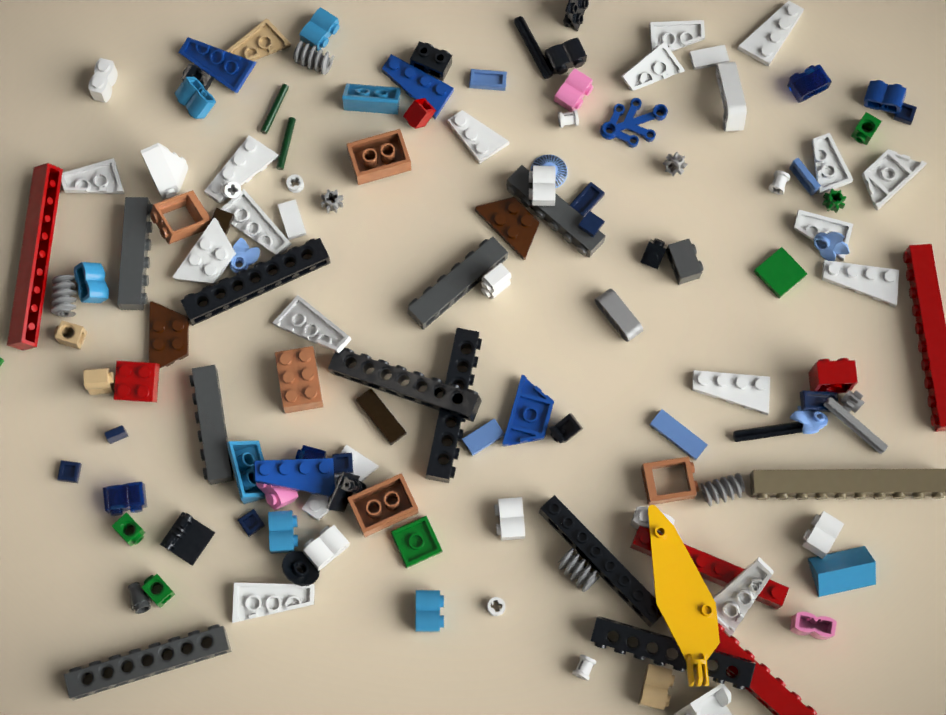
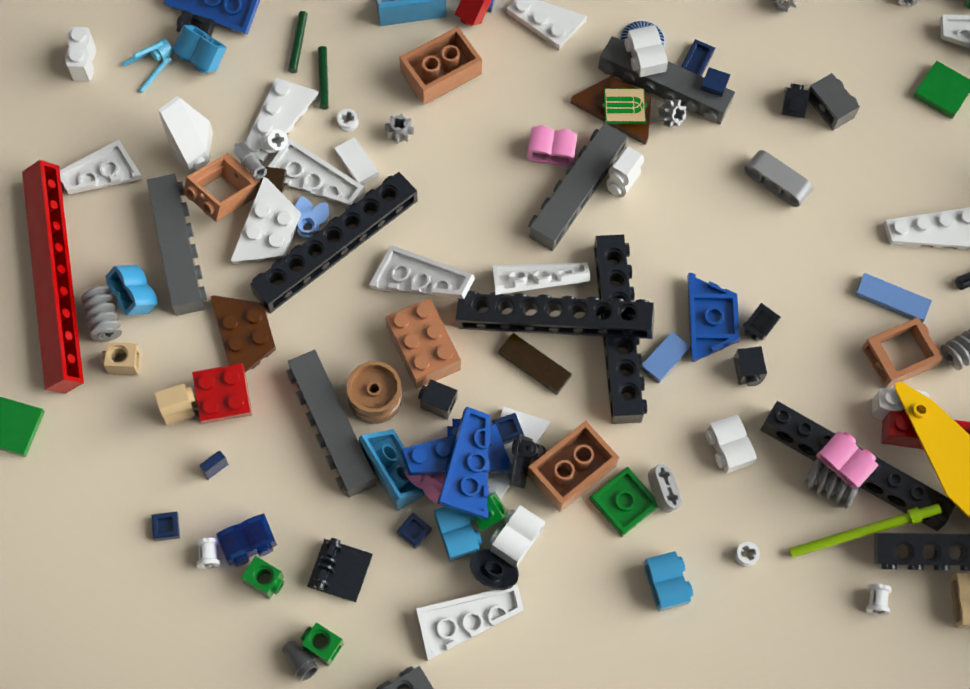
camera: 15 degrees left, 5 degrees down
(93, 500) = (207, 553): none -> white bush
(165, 92) = (159, 51): none -> medium azure plant
(207, 200) = (250, 160): none -> light grey axle
(240, 405) = (374, 392): none -> medium nougat wheel
(296, 493) = (466, 476): none -> blue wing
(298, 426) = (437, 398): none -> black brick
(308, 523) = (496, 512): none -> green brick
(397, 347) = (536, 276): none -> white wing
(447, 244) = (552, 146): none -> bright pink brick
(448, 539) = (664, 488): none -> light grey beam
(514, 225) = (624, 106): none -> piece
(545, 461) = (750, 366): none -> black brick
(551, 240) = (672, 112): none -> light grey gear
(590, 556) = (847, 459): none -> bright pink brick
(628, 612) = (912, 516): none -> lime bar

